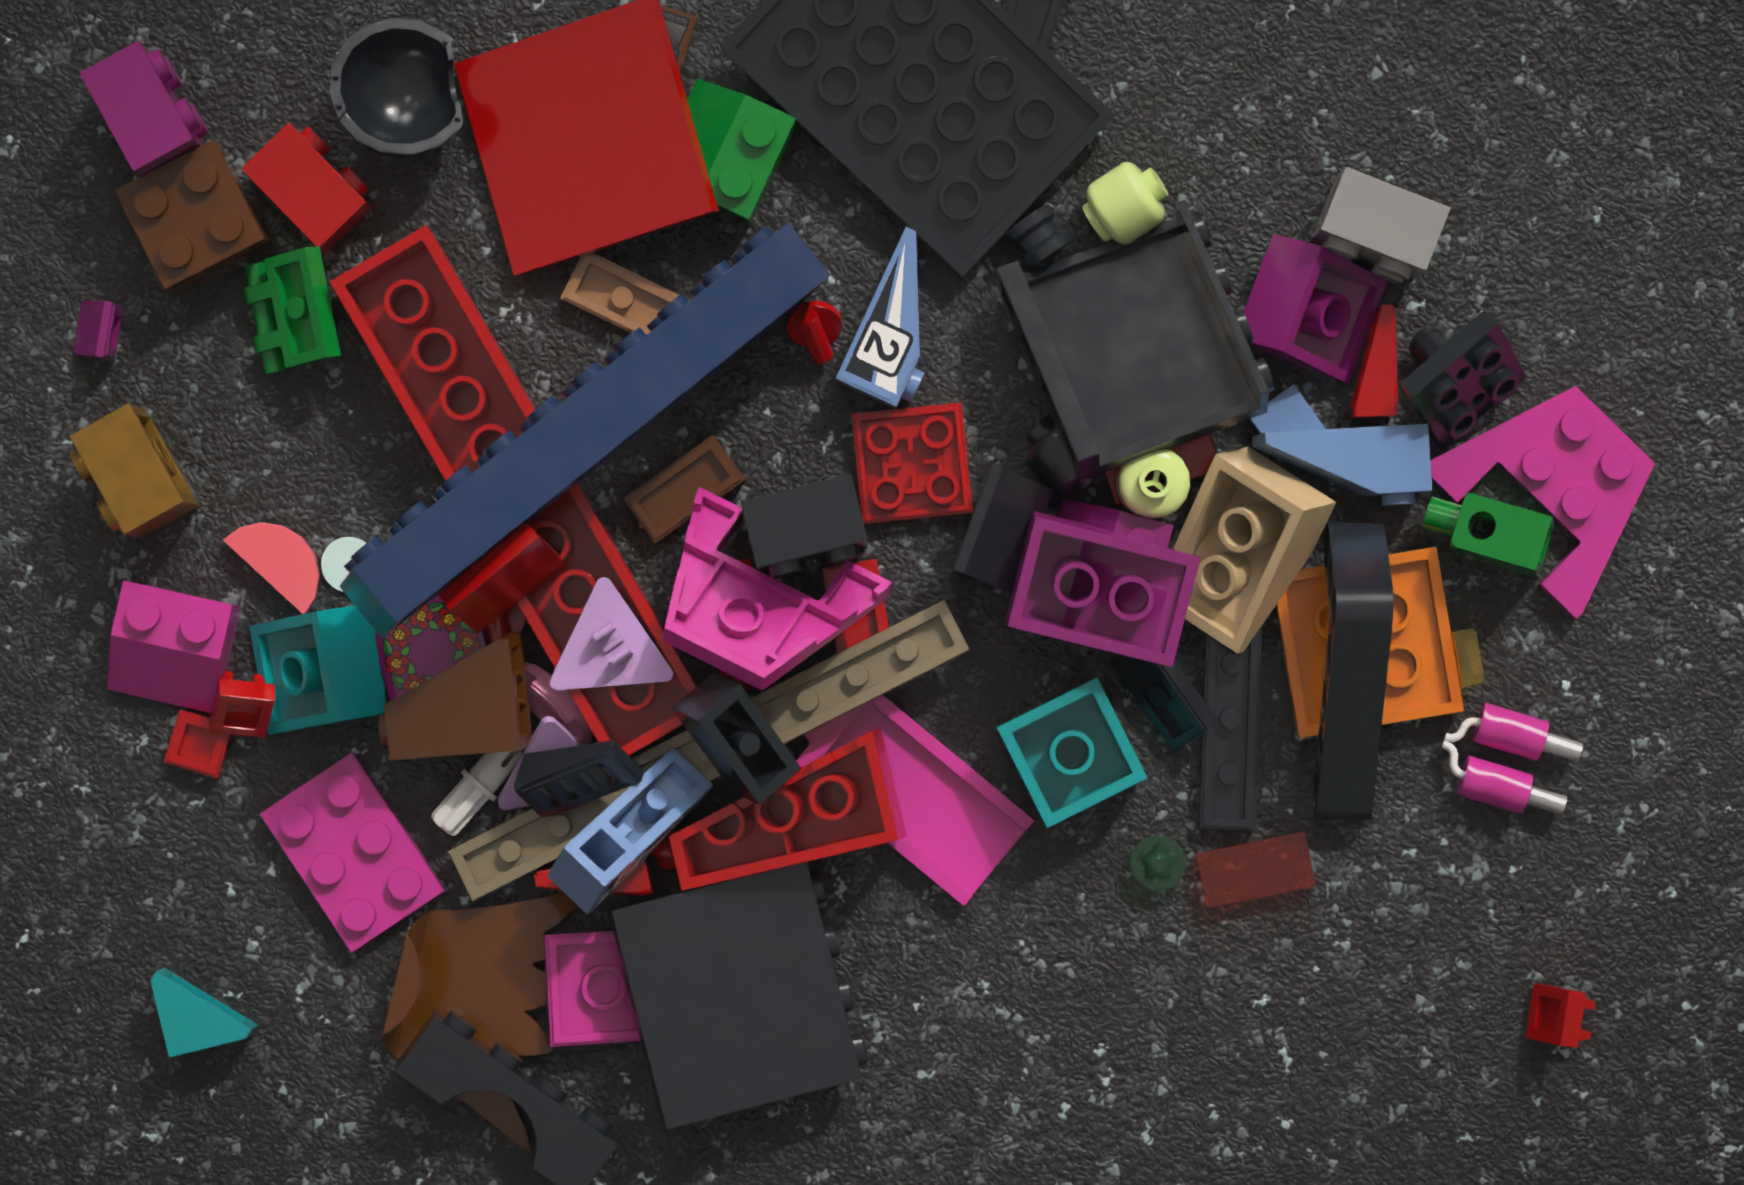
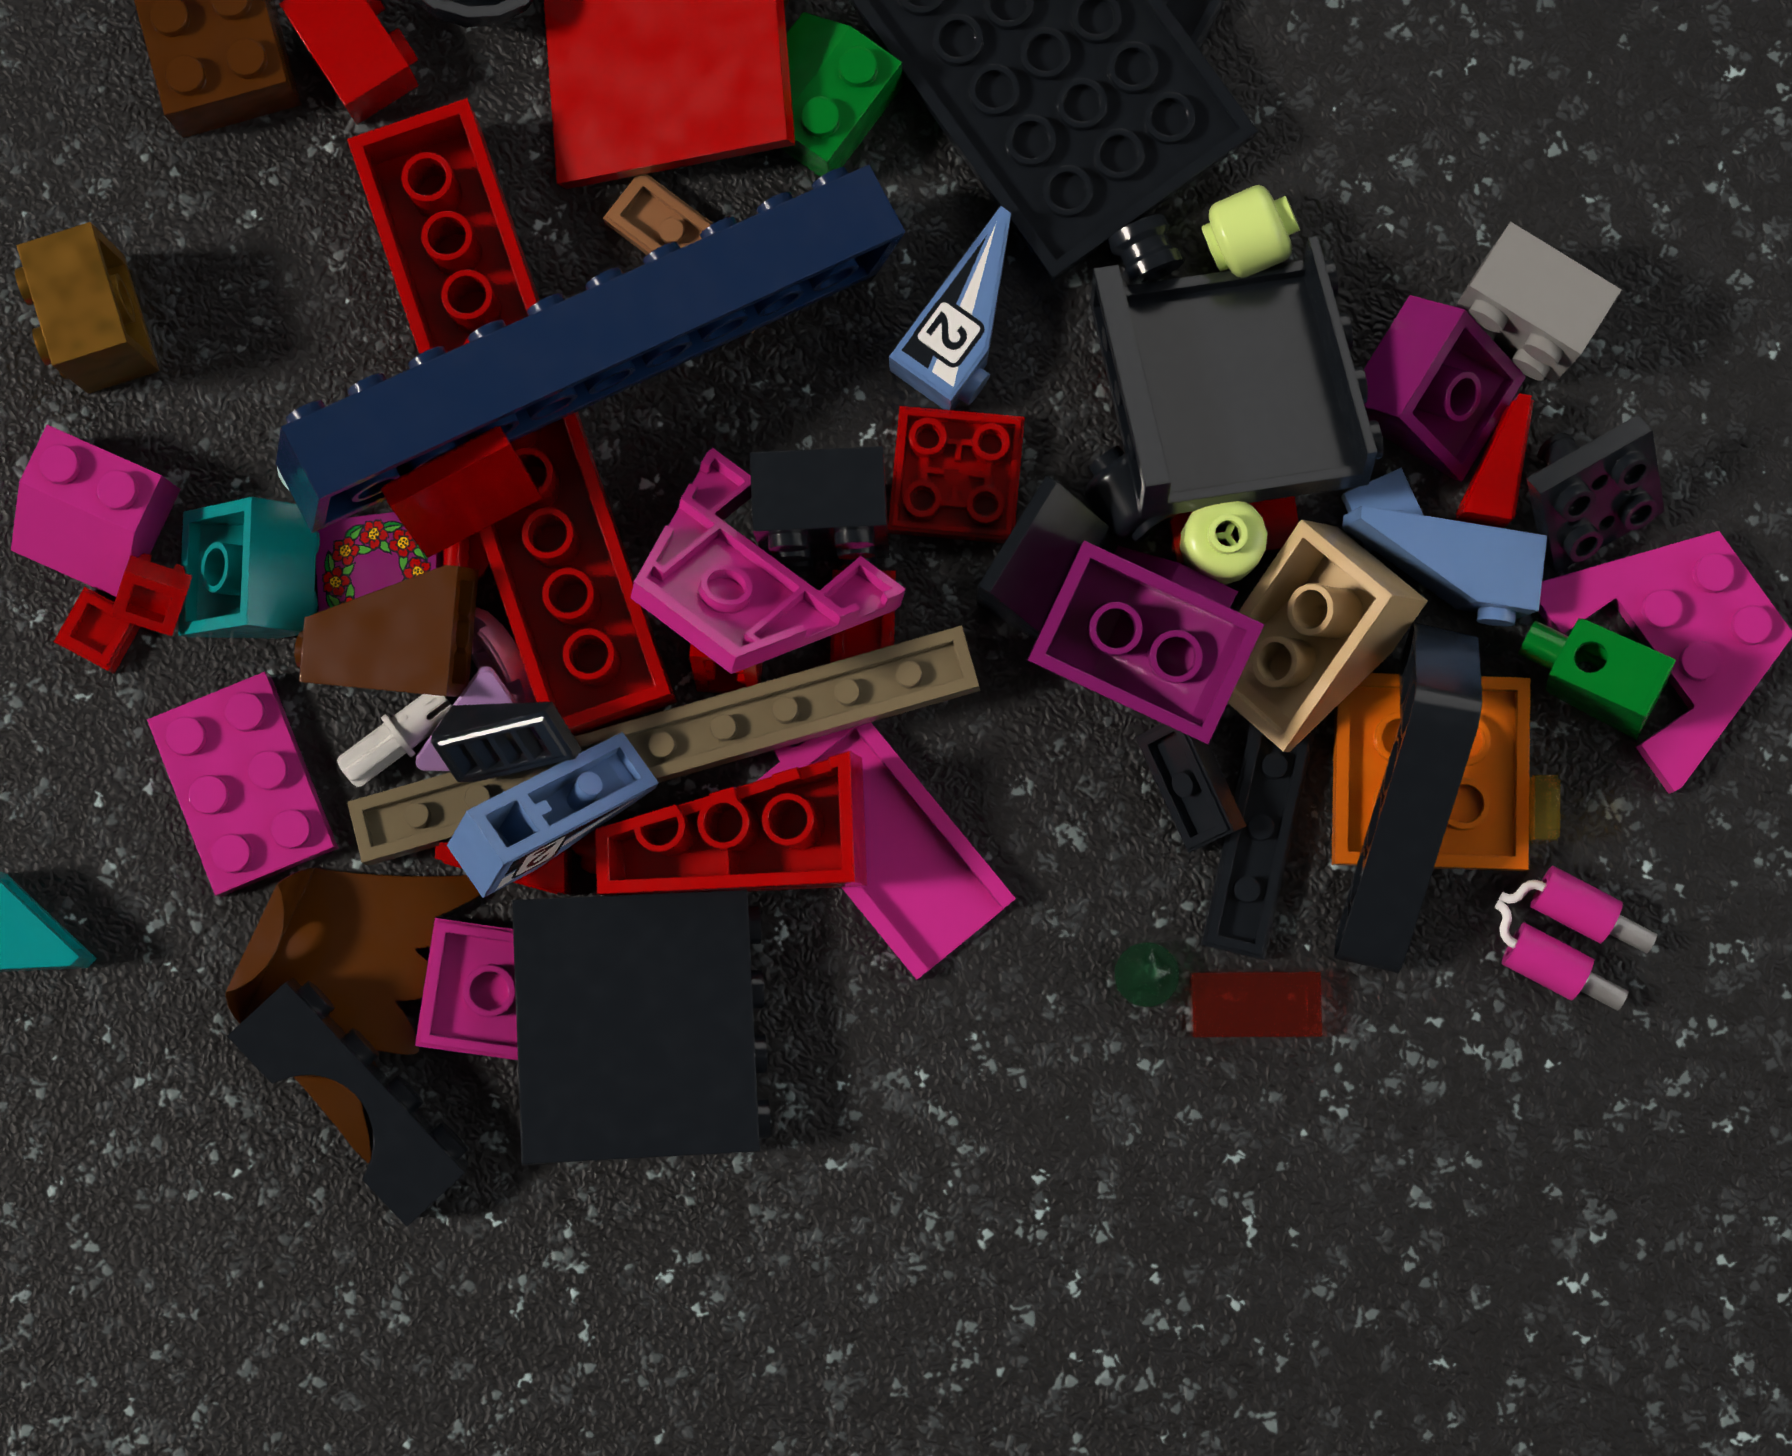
camera: 15 degrees right, 5 degrees down
(98, 329) = (91, 157): magenta slope -> none
(280, 559) = (232, 442): coral tile -> none
(291, 310) = (302, 170): green plate -> none
(608, 646) = (571, 601): lavender piece -> none
(669, 496) = (674, 457): reddish brown tile -> none
(736, 738) = (693, 728): black brick -> none
(815, 327) = (878, 302): red plate -> none
(1071, 752) = (1072, 826): teal brick -> none
(1557, 1015) = (1573, 1240): red tile -> none

